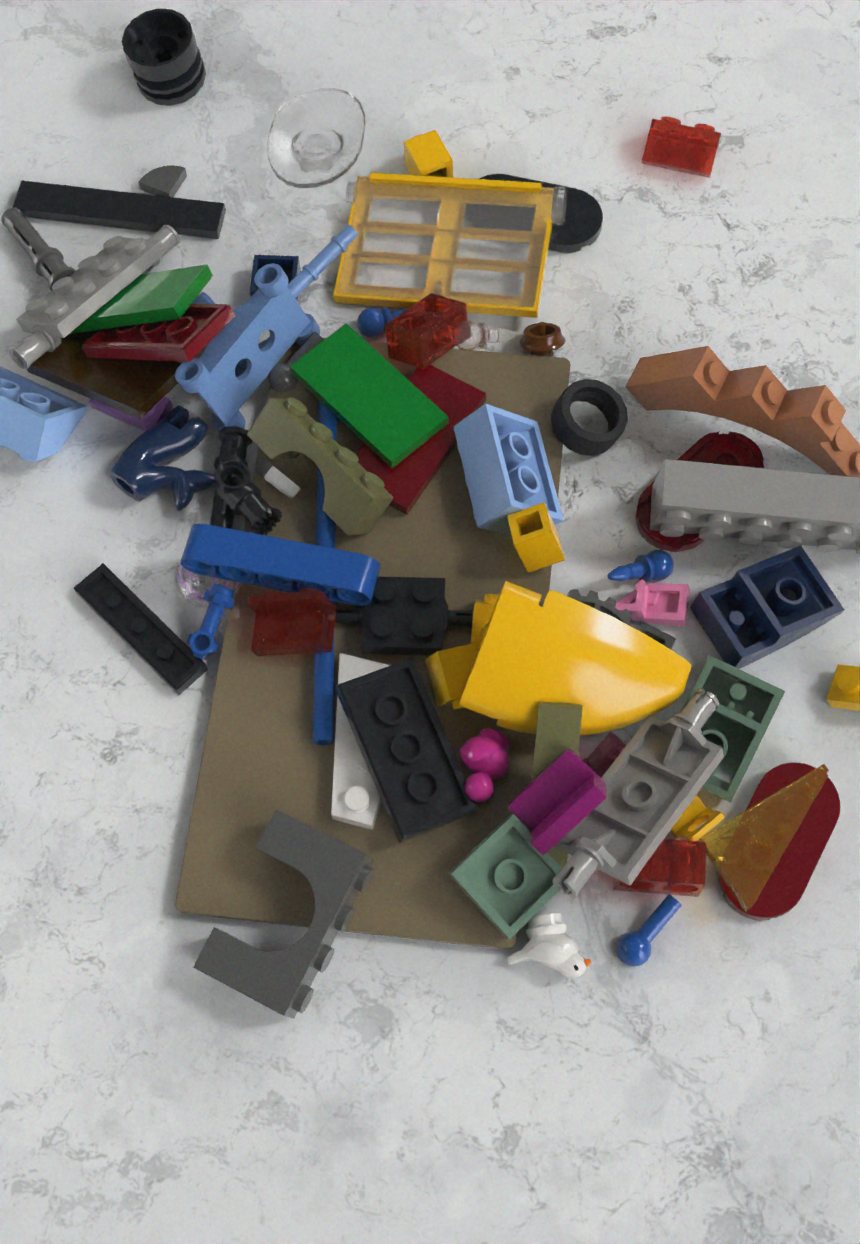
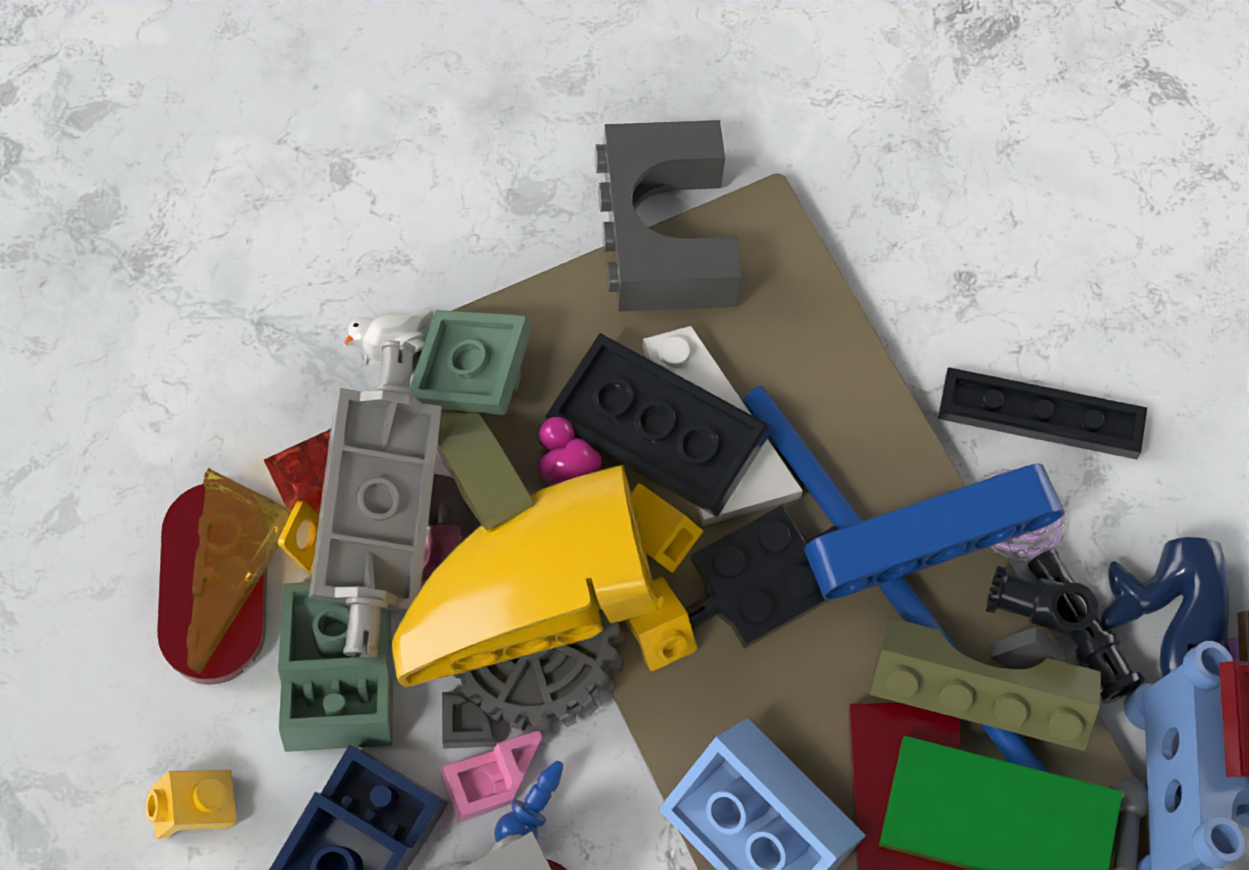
camera: 145 degrees right, 0 degrees up
(203, 641) = (959, 431): blue bar -> none
(292, 623) = (872, 484): clear red bracket -> none
(535, 537) = (669, 741): yellow brick -> none
(558, 800) = (449, 437): magenta panel -> none
(635, 946) = (311, 396): blue bar -> none

